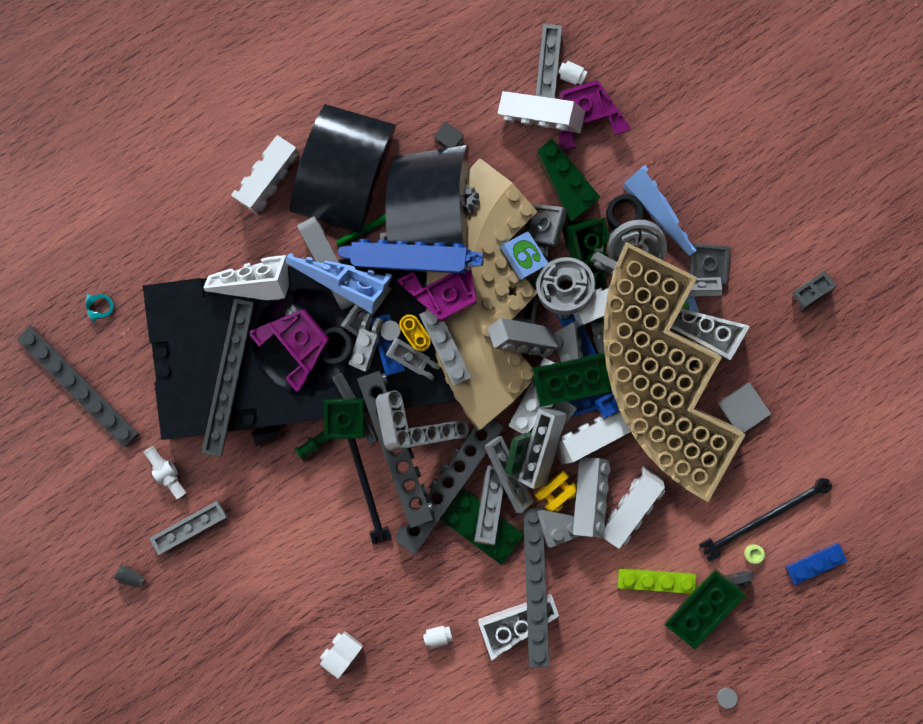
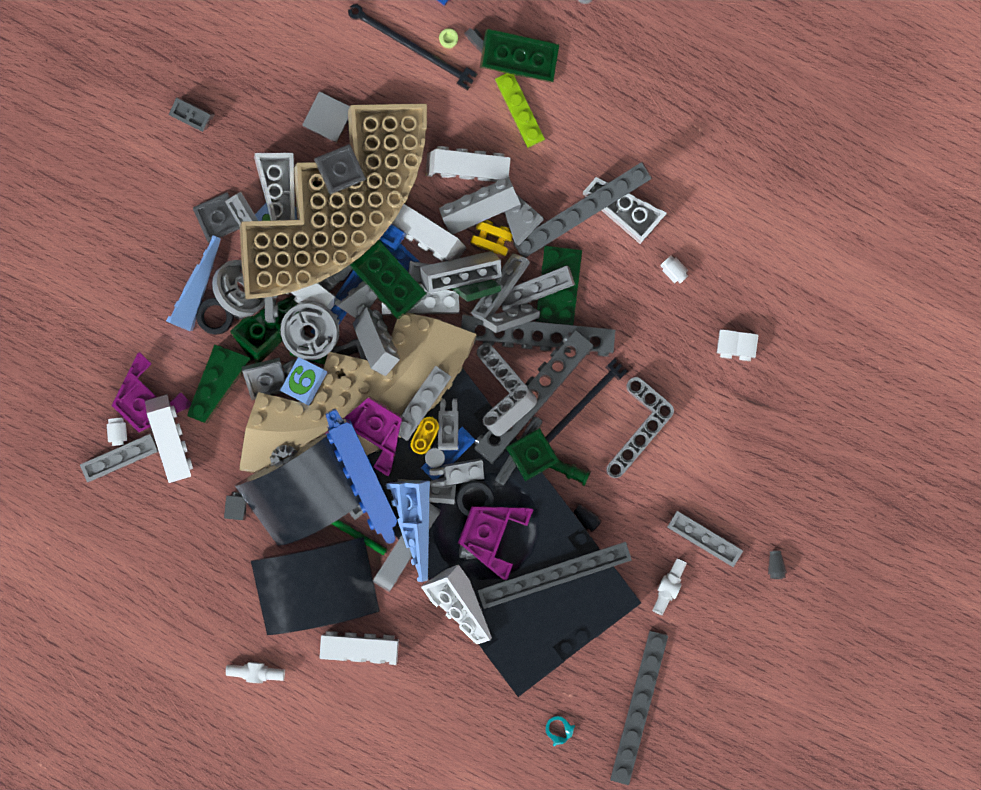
camera: 115 degrees left, 0 degrees up
(298, 75) = (255, 672): none -> white pin
(305, 530) = (643, 429): none -> light grey beam
(476, 468) = (511, 318): none -> light grey plate
(694, 392) = (339, 169): none -> flat silver tile

